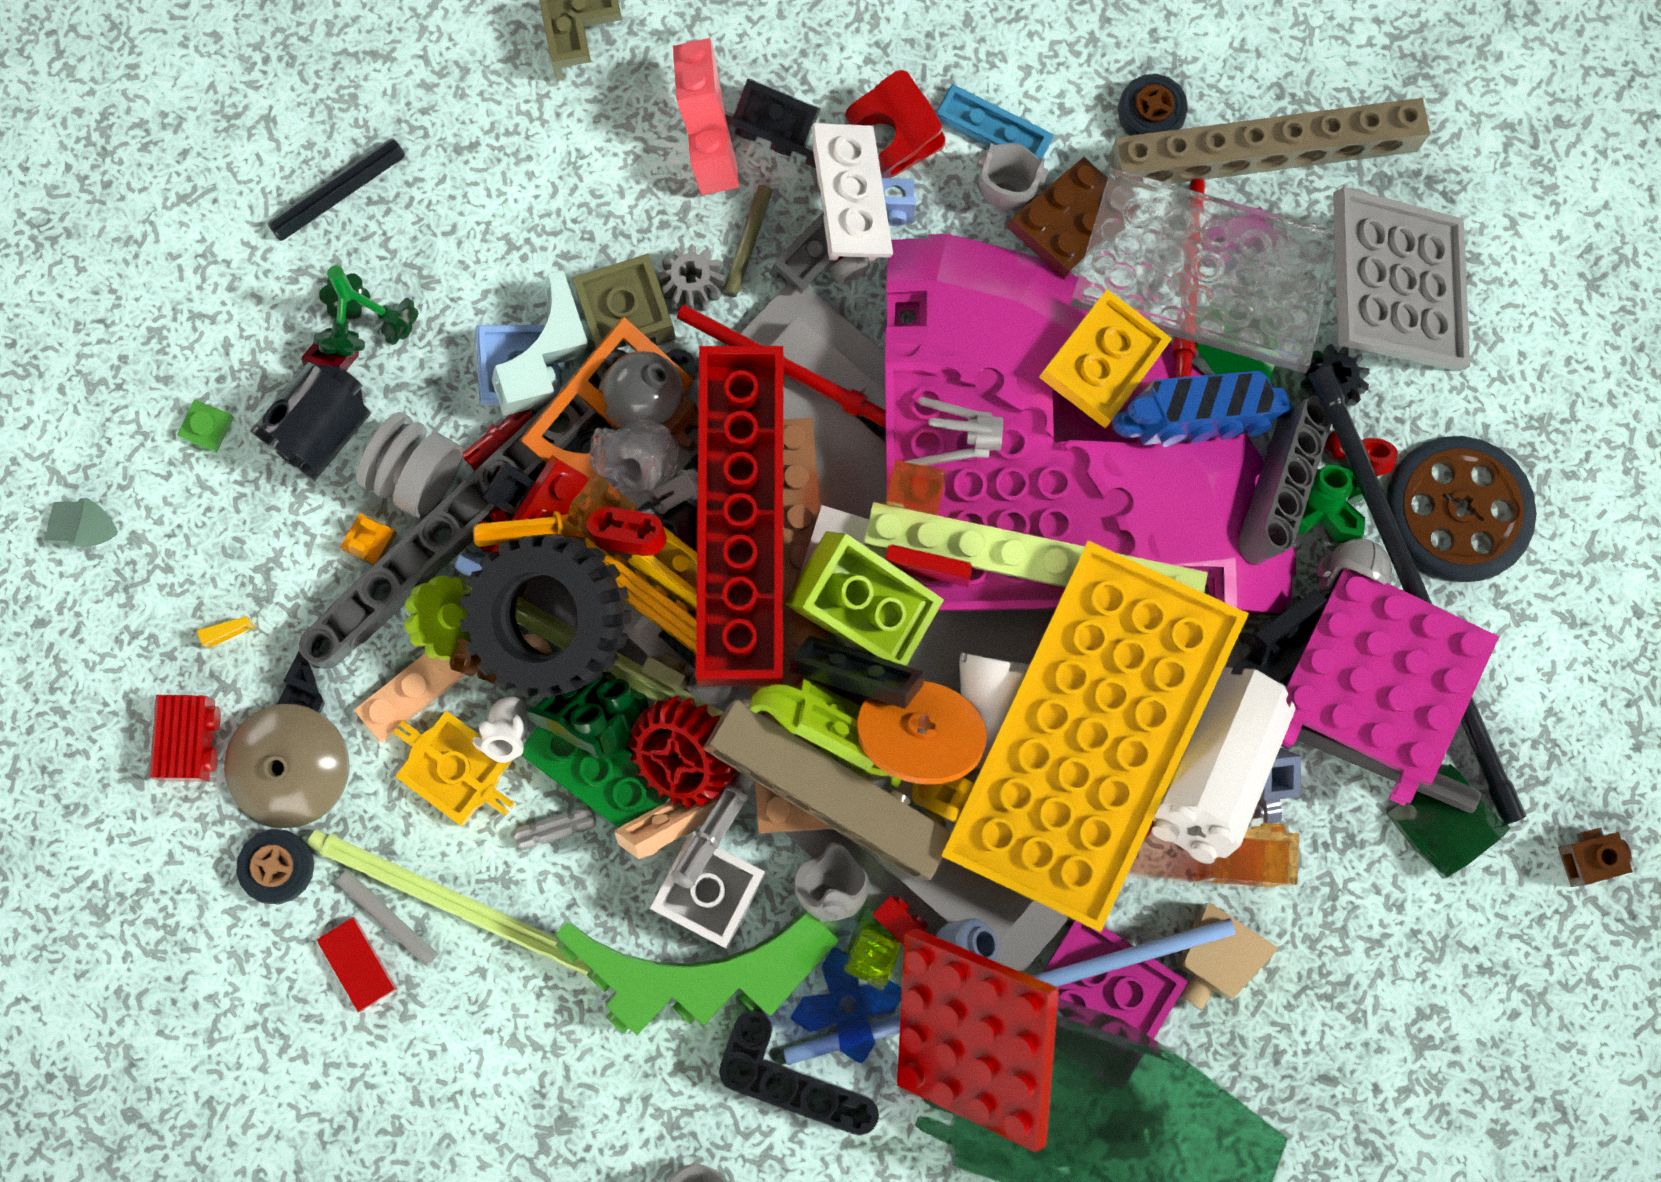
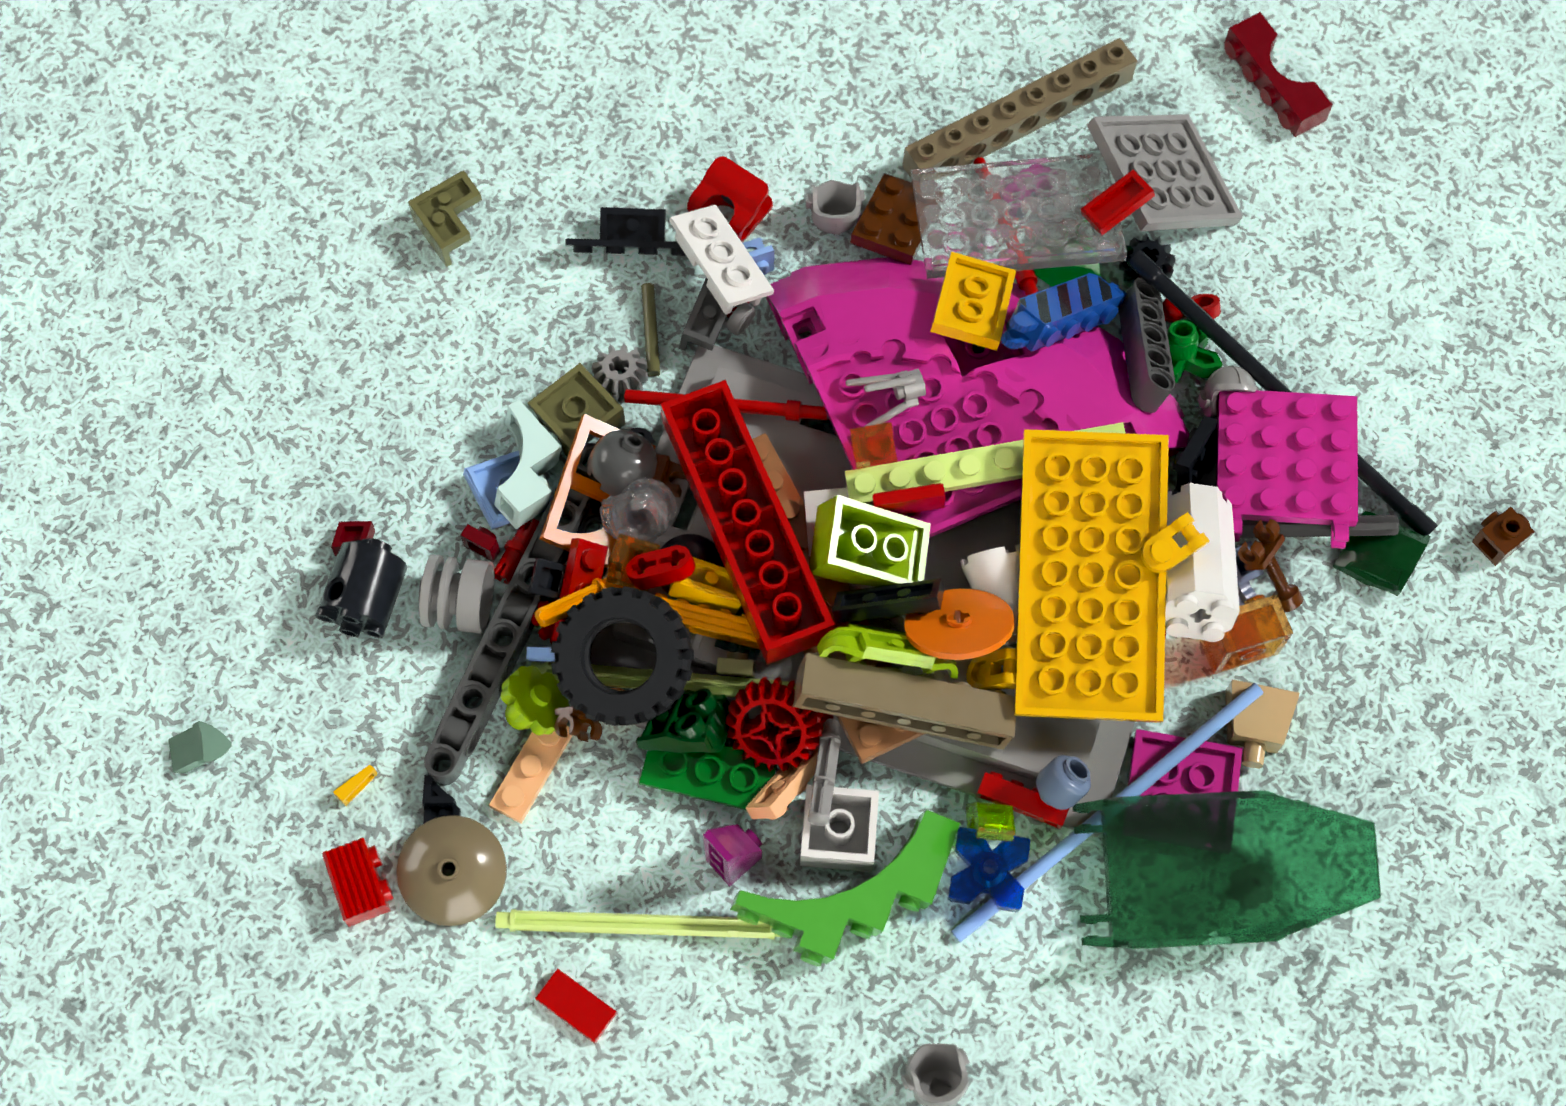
camera: 20 degrees left, 10 degrees down
(205, 426) = (271, 632): bright green plate -> none
(260, 861) = (473, 940): black wheel -> none
(336, 189) = (302, 411): black axle -> none
(345, 300) = (346, 492): dark green plant -> none
(368, 539) = (443, 668): light orange tile -> none
(387, 918) = (585, 959): light grey piece -> none
(451, 770) = (590, 818): yellow plate -> none
(463, 413) = (481, 542): none -> dark red plate
(504, 730) = (621, 769): white animal -> none
(554, 828) = (691, 833): light grey axle -> none
(582, 870) = (731, 851): none -> magenta slope
(676, 490) = (688, 521): light grey pin -> none
(704, 116) = (580, 246): coral arch -> none
(801, 1082) = (976, 948): black beam -> none
(832, 884) = (936, 781): light grey cap -> none
(977, 1038) = (1103, 844): red plate -> none
(990, 123) = (799, 175): dark azure tile -> none
(1158, 95) = (919, 108): black wheel -> none
(1181, 745) = (1163, 553): none -> yellow plate
(1304, 779) = (1262, 558): none -> reddish brown bar
(1325, 302) = (1117, 202): none -> red tile
(1508, 485) = (1310, 293): reddish brown wedge -> none
(1595, 254) = (1297, 104): none -> dark red arch

